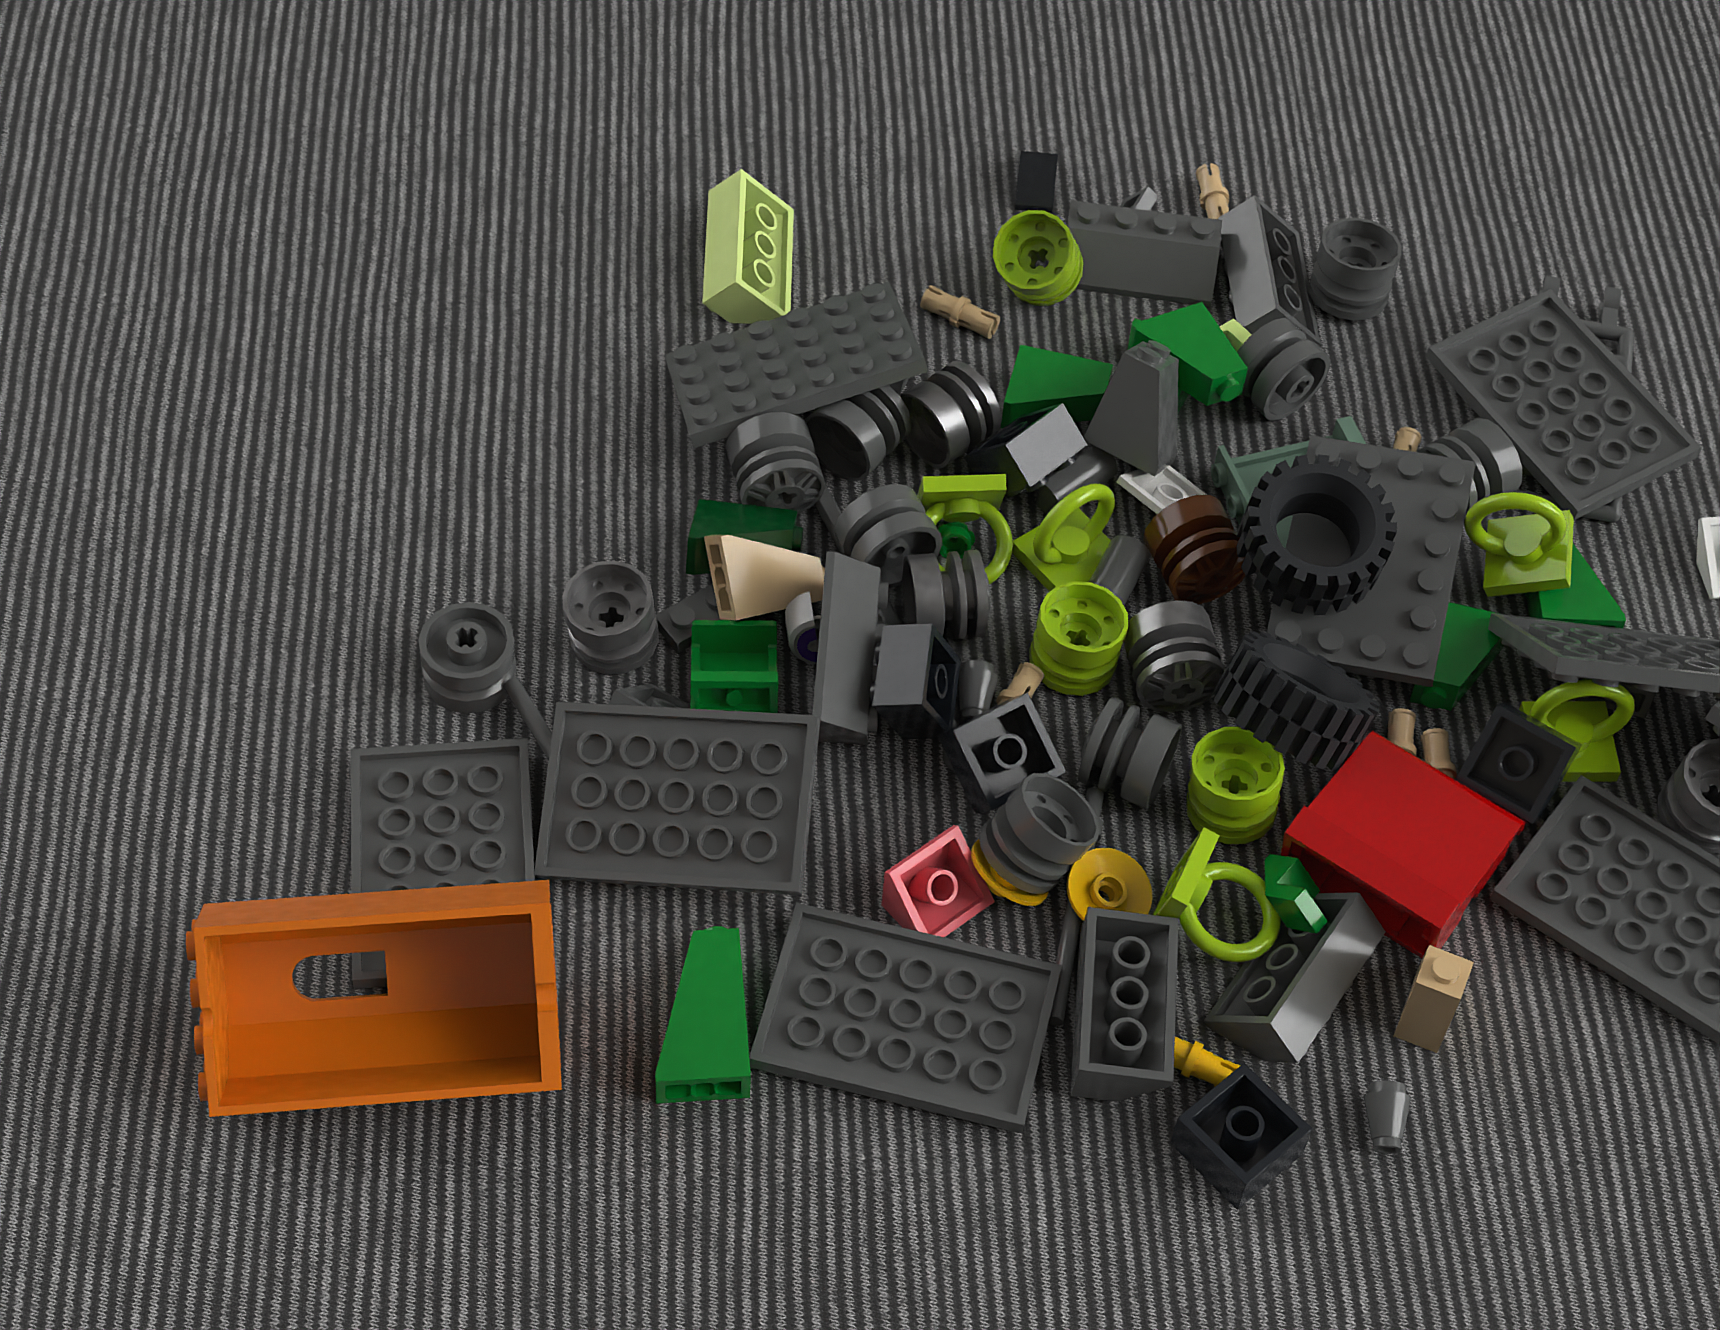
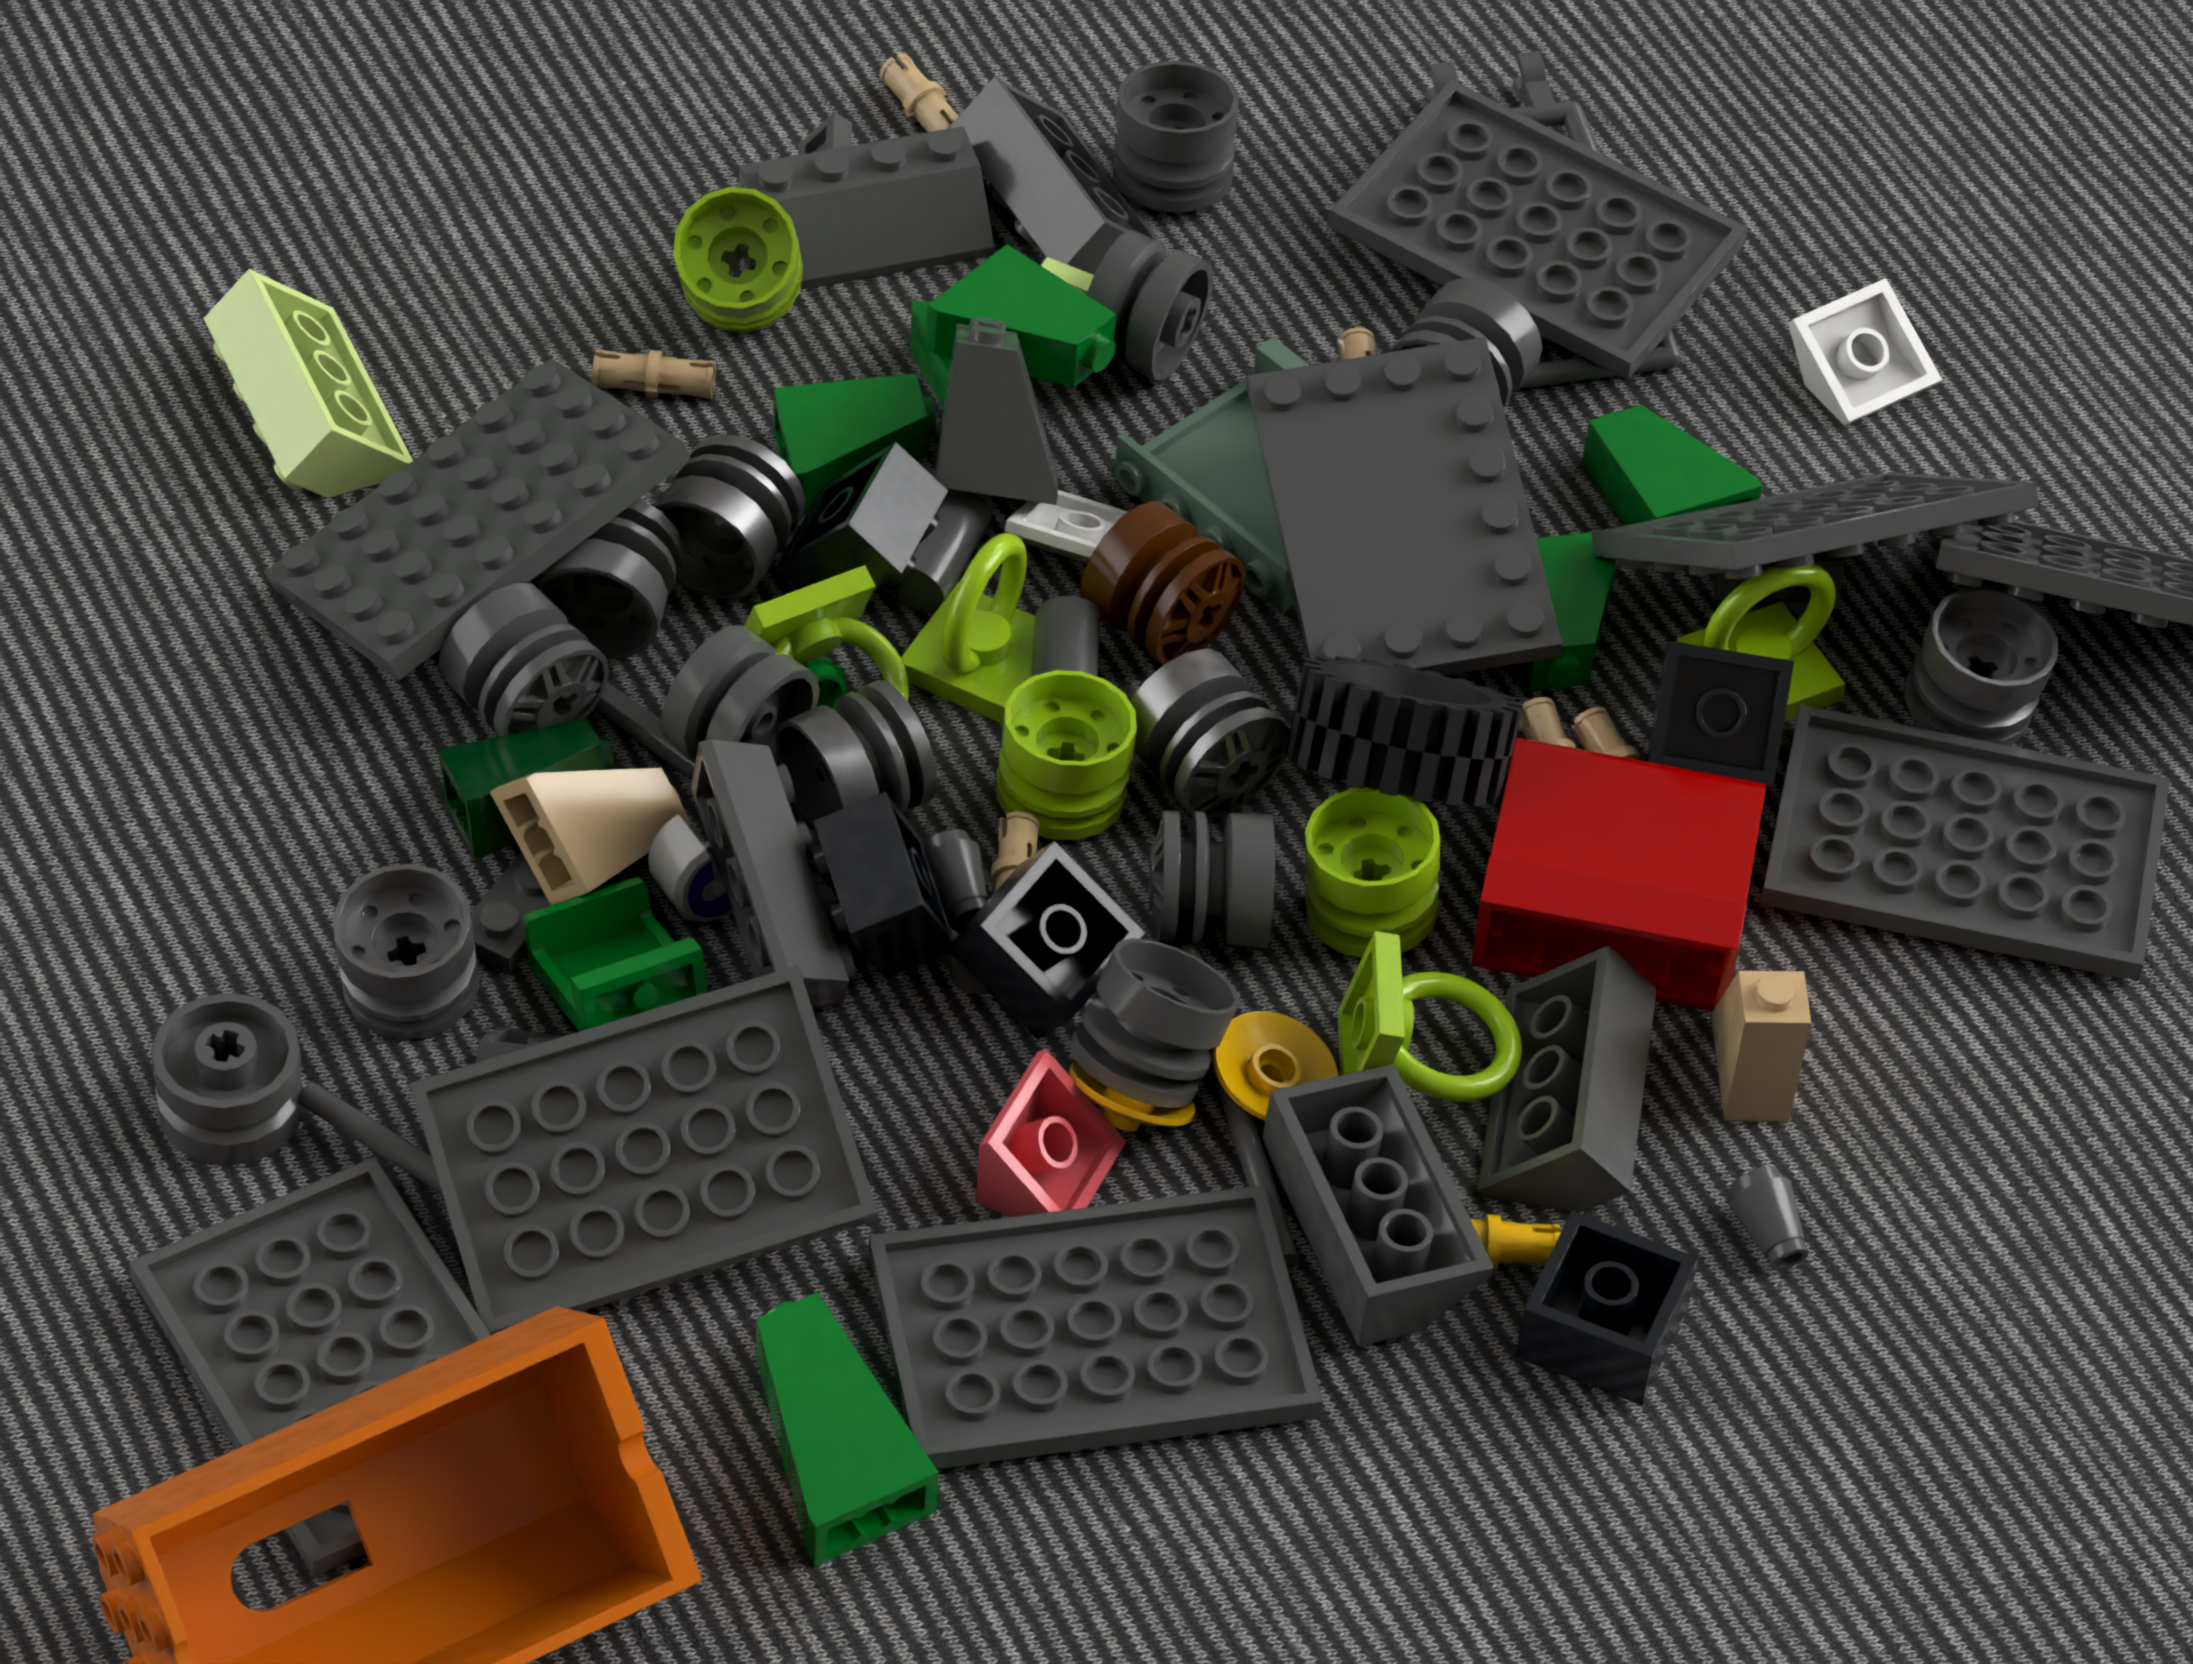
camera: 25 degrees left, 5 degrees down
(1036, 181) = (662, 155): black slope -> none
(1292, 893) = (1520, 981): green slope -> none
(1330, 494) = (1338, 444): black tyre -> none
(1523, 550) = (1592, 436): lime tile -> none

